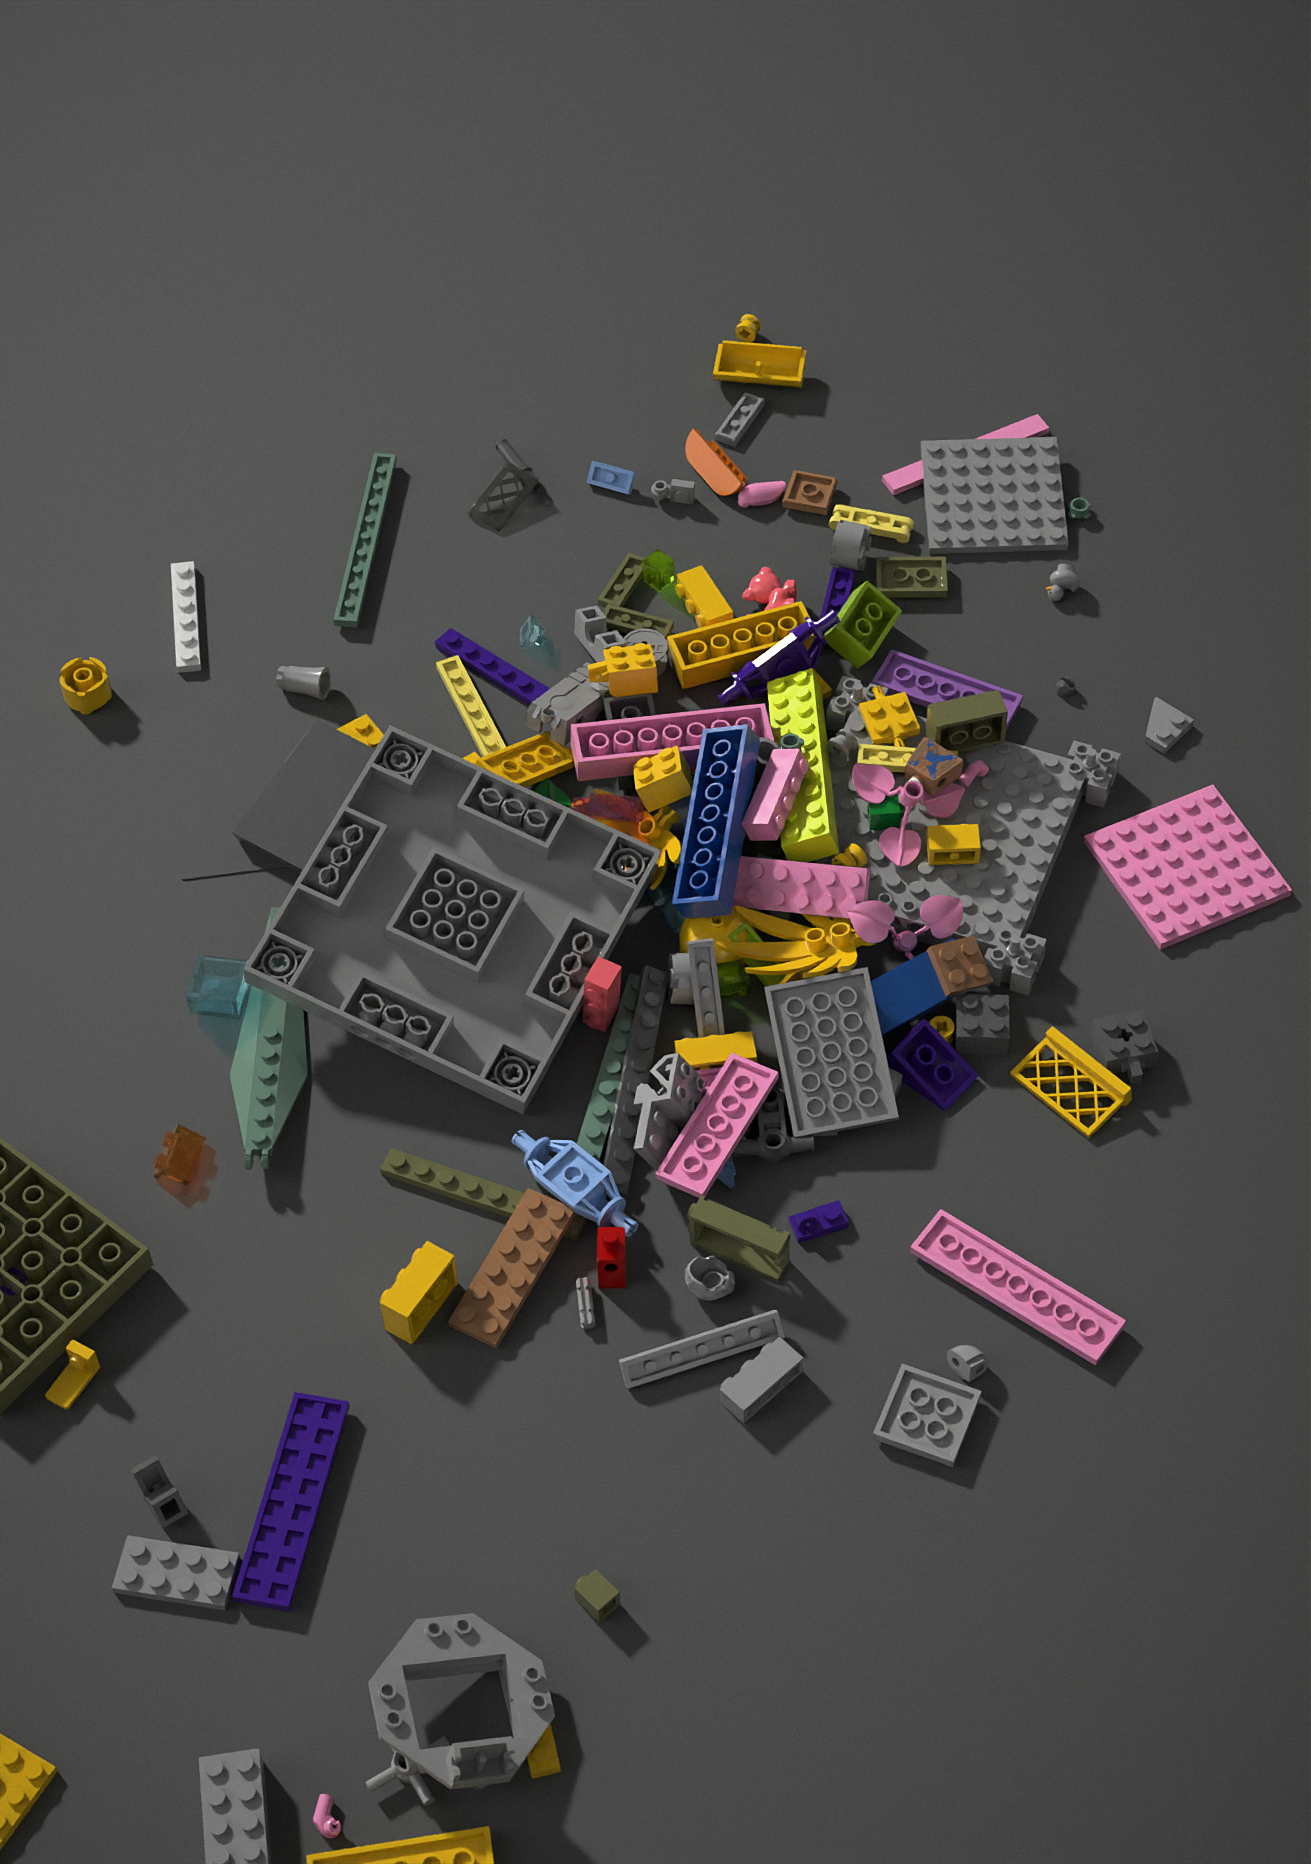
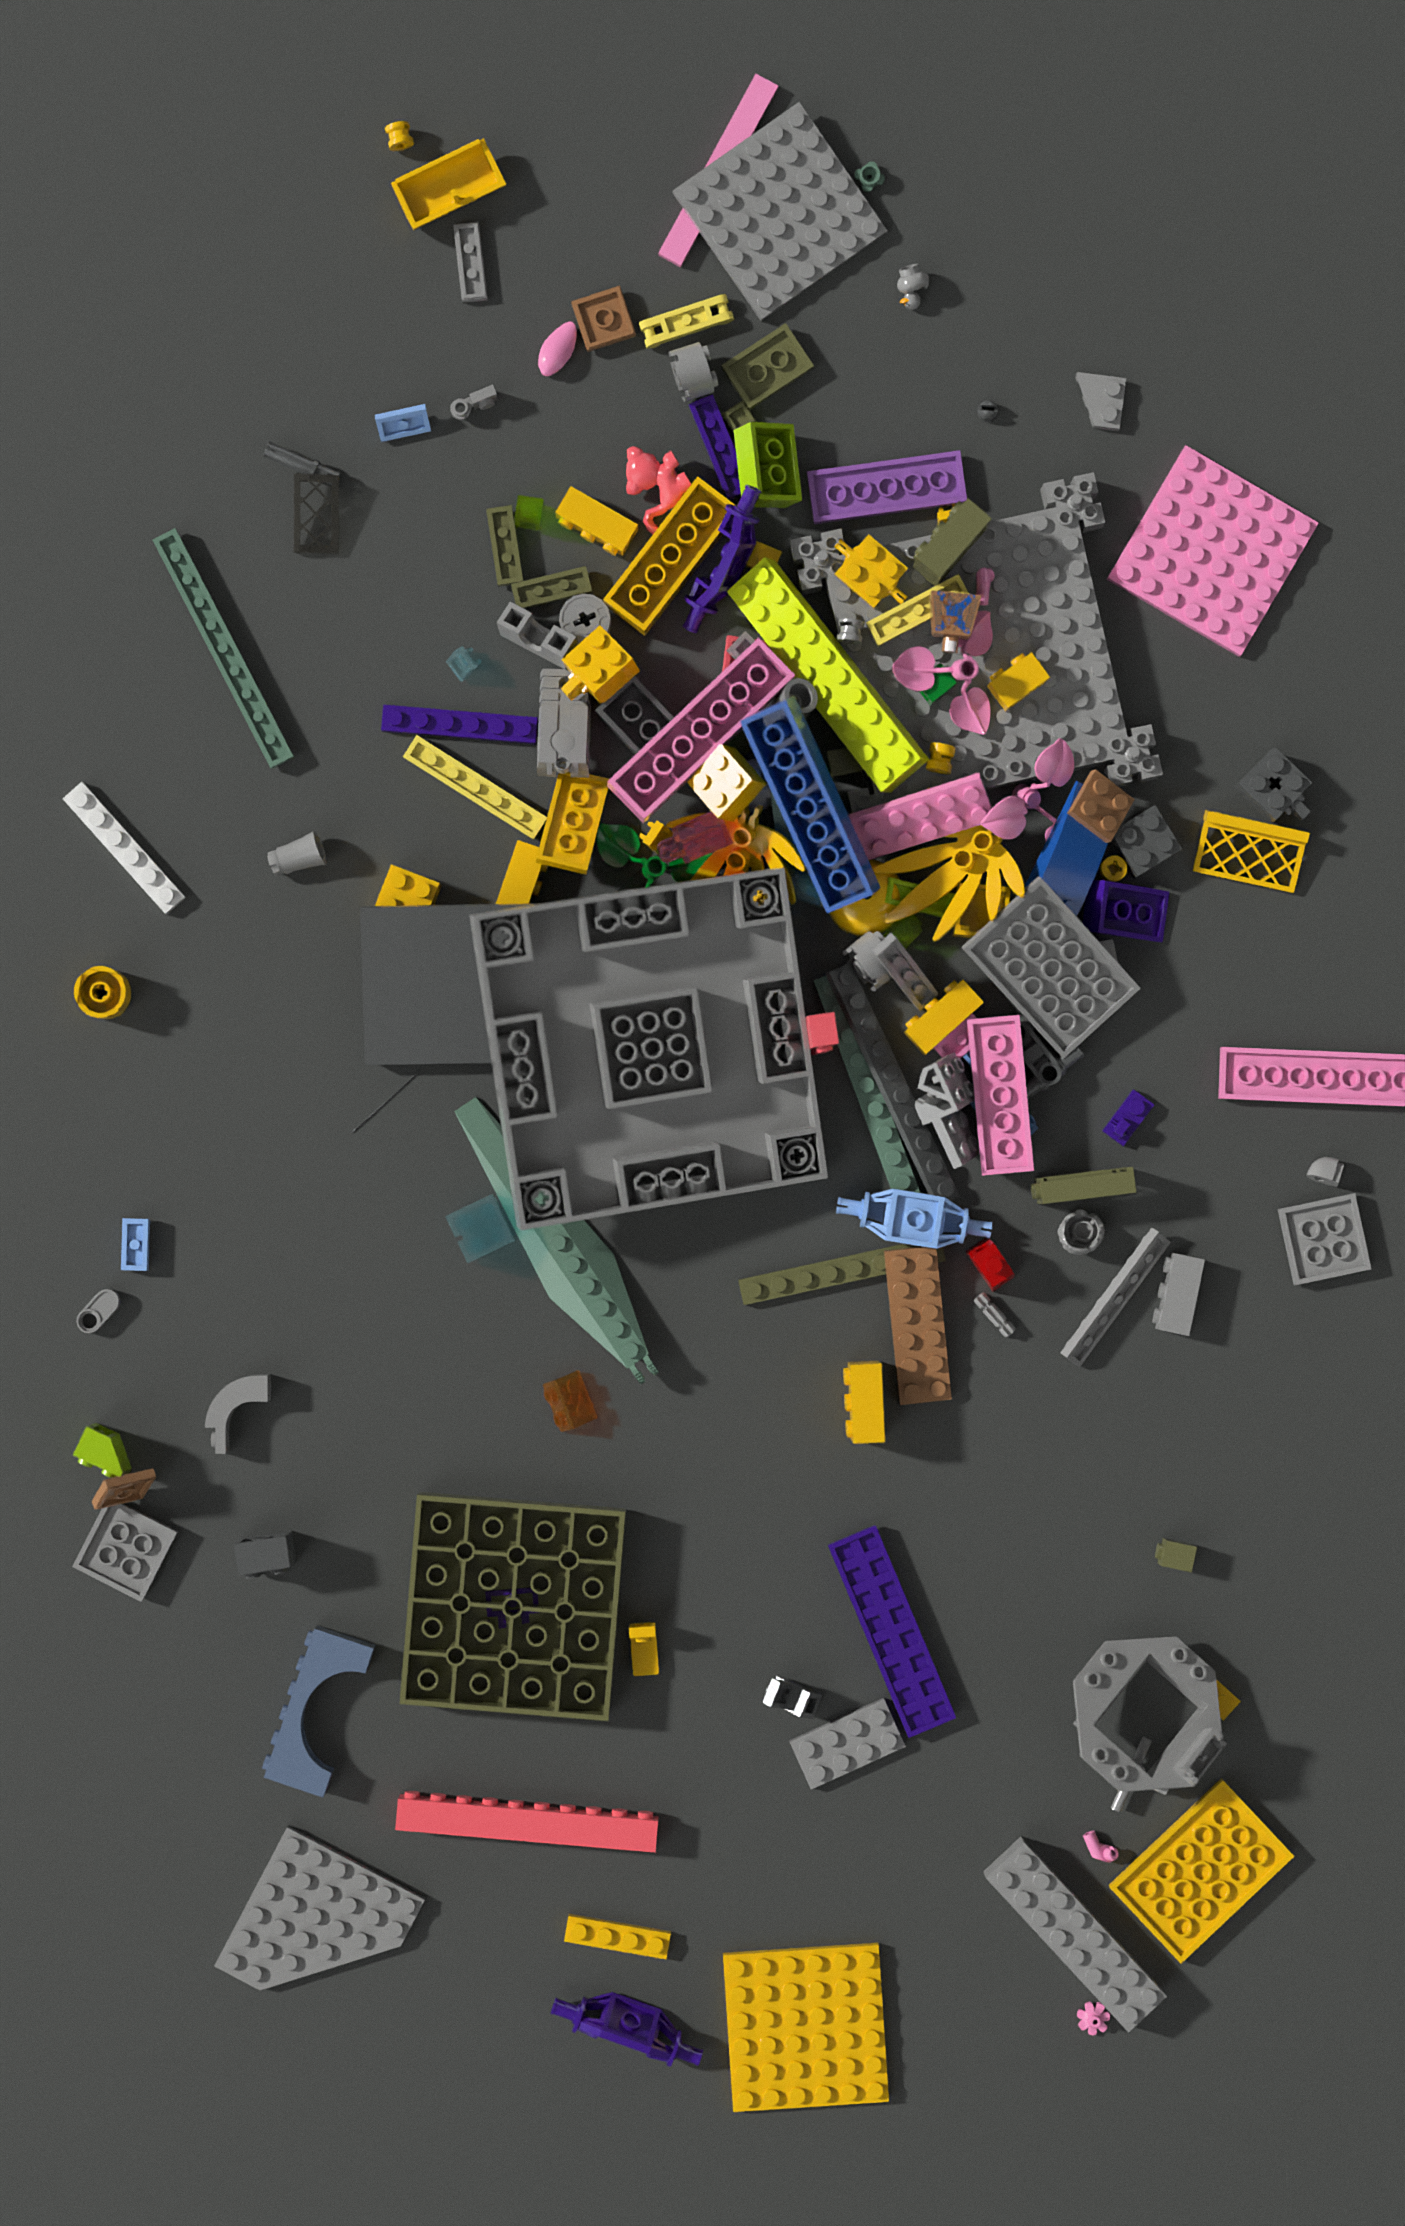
camera: 40 degrees left, 35 degrees up
(714, 465) = (492, 343): orange brick -> none
(775, 794) = (842, 741): bright pink brick -> none
(791, 741) = (810, 670): sand green plate -> none

